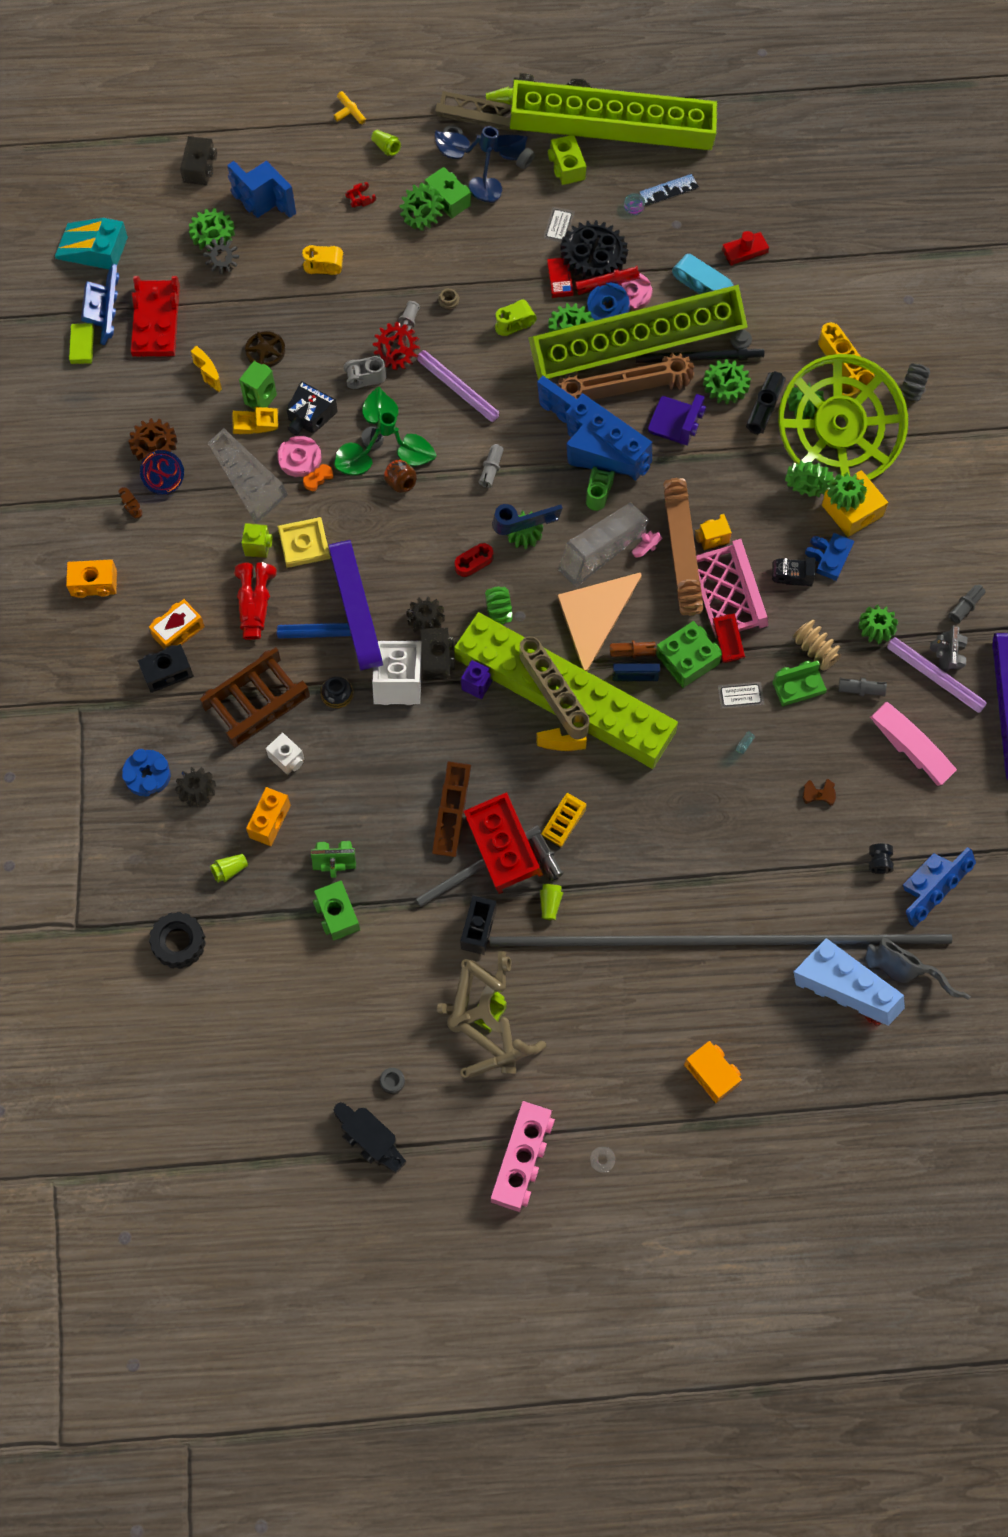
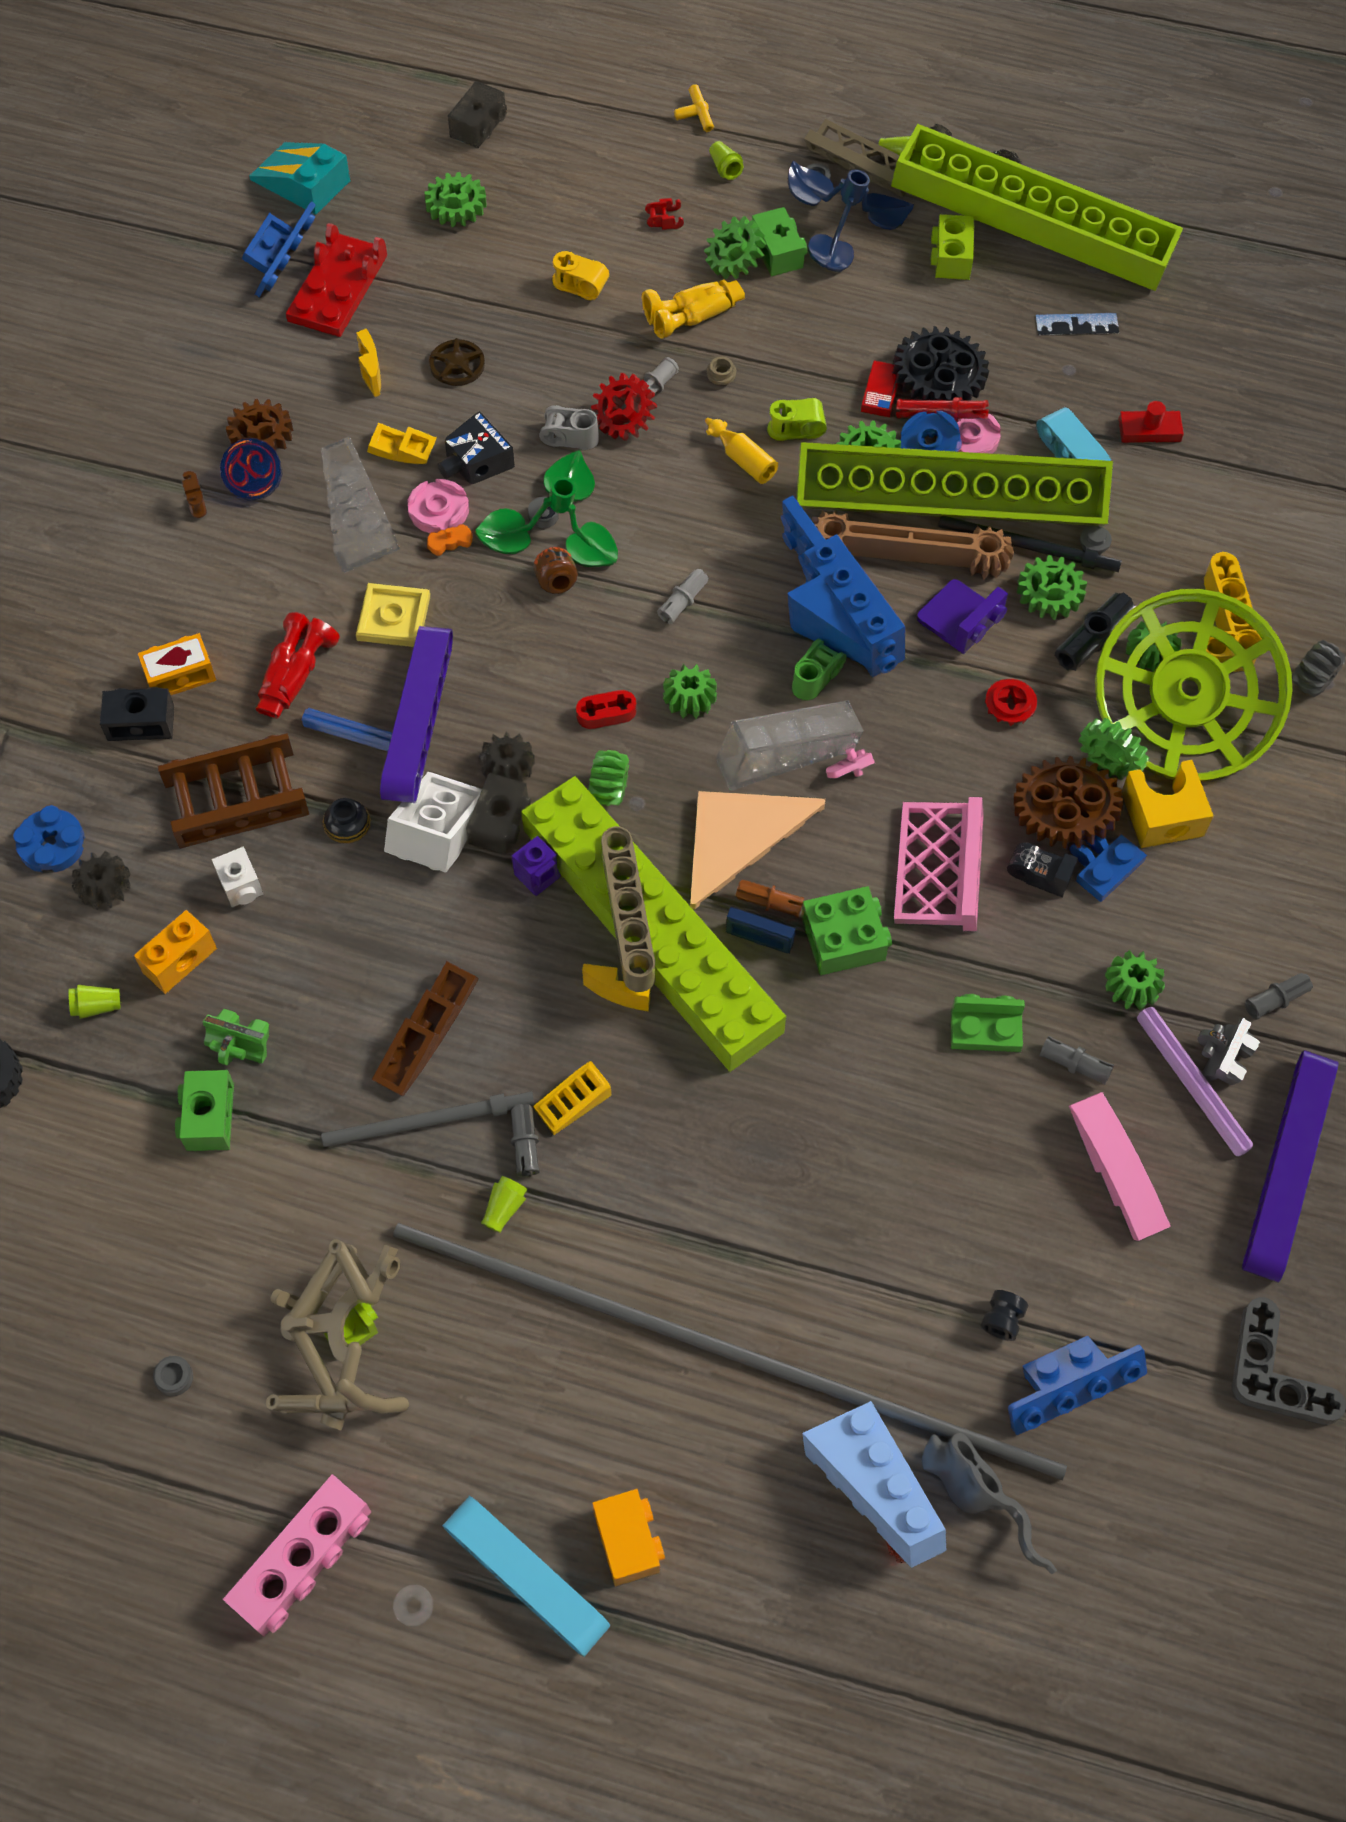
camera: 20 degrees right, 5 degrees down
(81, 343) = (230, 286): lime tile -> none
(82, 571) = (100, 571): light orange brick -> none
(228, 257) = (443, 225): dark grey gear -> none
(256, 540) = (329, 591): lime brick -> none
(258, 386) = (421, 399): bright green brick -> none
(261, 189) = (537, 167): blue bracket -> none
(370, 1136) = (103, 1442): black hinge -> none
(412, 255) = (690, 305): none -> yellow piece
(458, 386) = (685, 483): lavender axle -> none
(478, 925) = (385, 1200): black brick -> none
(488, 351) = (744, 451): none -> yellow wheel
(502, 842) = (471, 1098): red hinge -> none
(507, 519) = (663, 671): dark blue door -> none
(525, 158) = (898, 229): dark grey tile -> none
(558, 224) = (911, 319): sticker -> none
(634, 204) = (1021, 327): clear light blue tile -> none
(662, 1116) = (526, 1576): none -> medium azure beam
(683, 547) = (896, 783): medium nougat arm -> none
(713, 533) = (949, 779): yellow brick -> none
(728, 638) = (911, 927): red tile -> none
(736, 461) = (1022, 696): none -> red gear
(741, 695) = (898, 1012): sticker -> none
(745, 742) = (874, 1079): clear light blue tile -> none
(780, 526) = (1068, 802): none -> reddish brown gear
(816, 645) = (1032, 979): tan piece -> none
(827, 794) = (963, 1195): reddish brown piece -> none
(847, 491) = (1157, 780): bright green gear -> none

